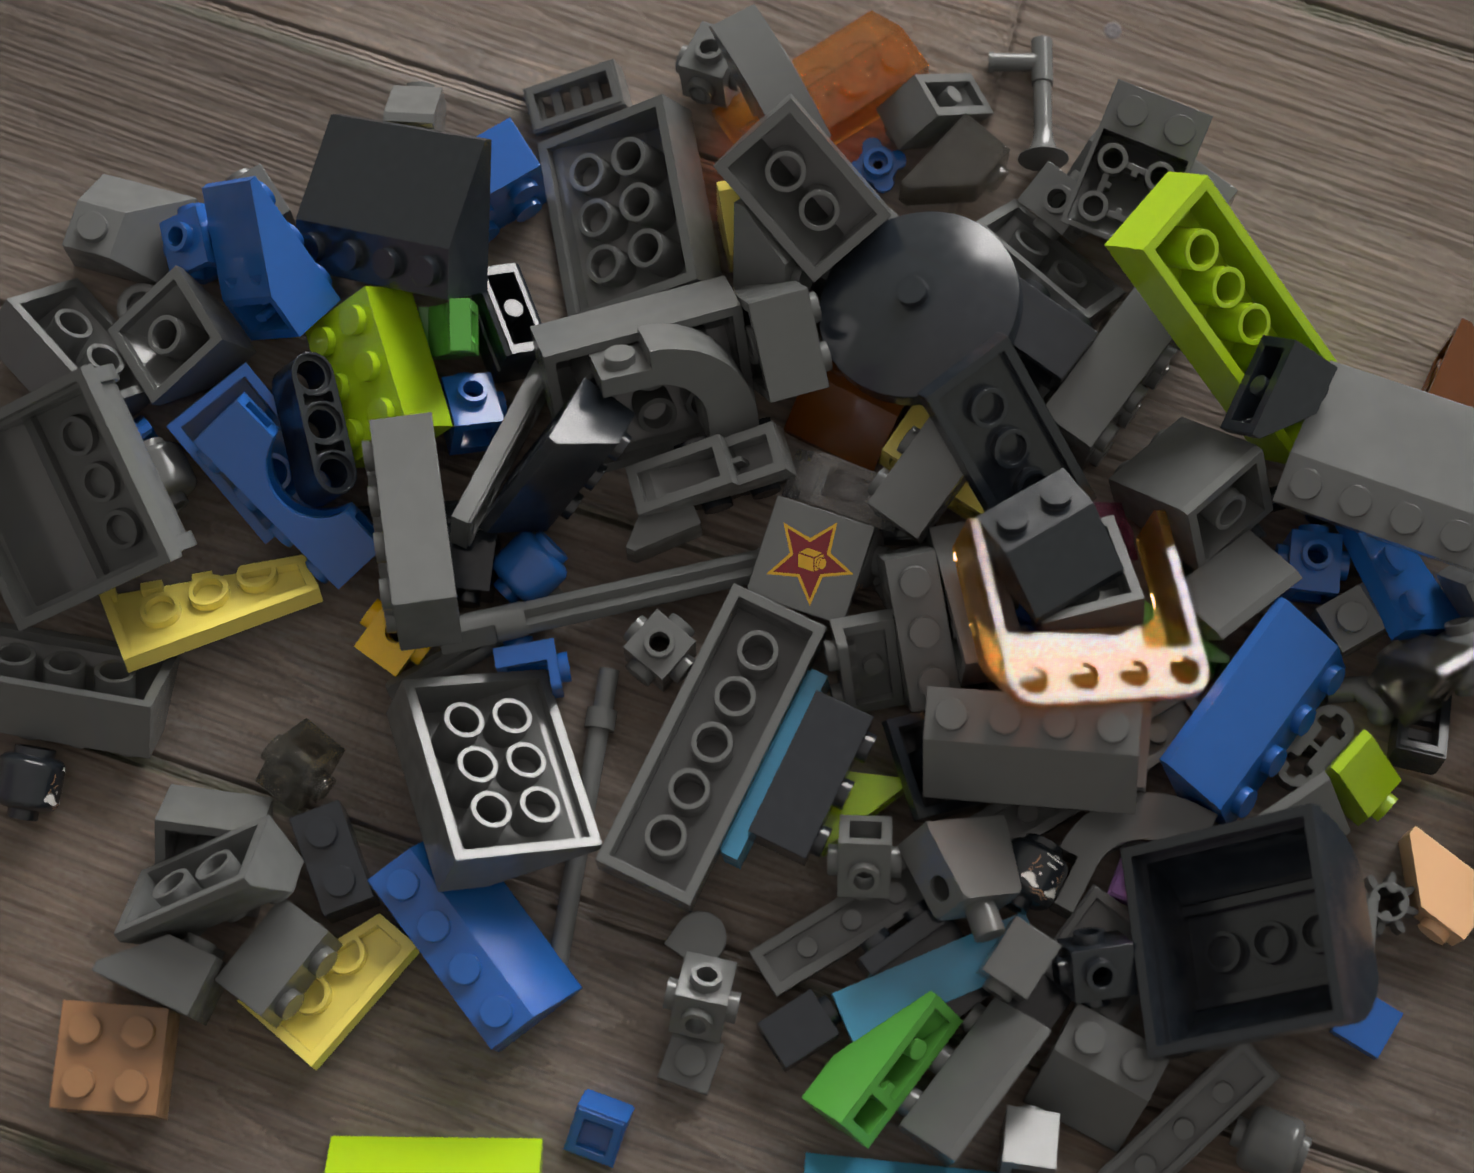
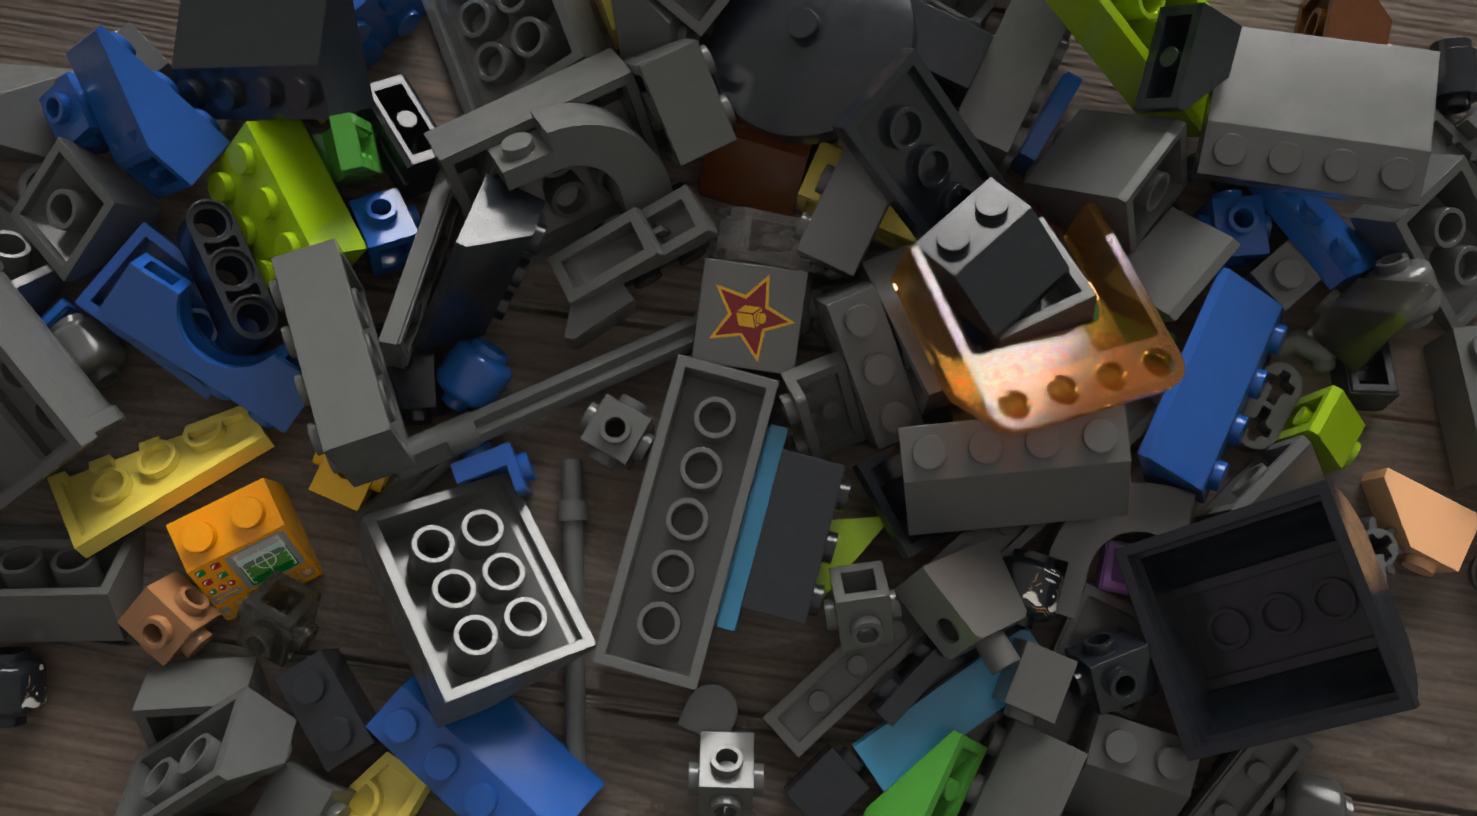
camera: 15 degrees left, 5 degrees up
(198, 746) = (171, 618): none -> medium nougat brick
(276, 687) = (241, 542): none -> light orange slope
(1146, 423) = (1046, 122): none -> blue tile

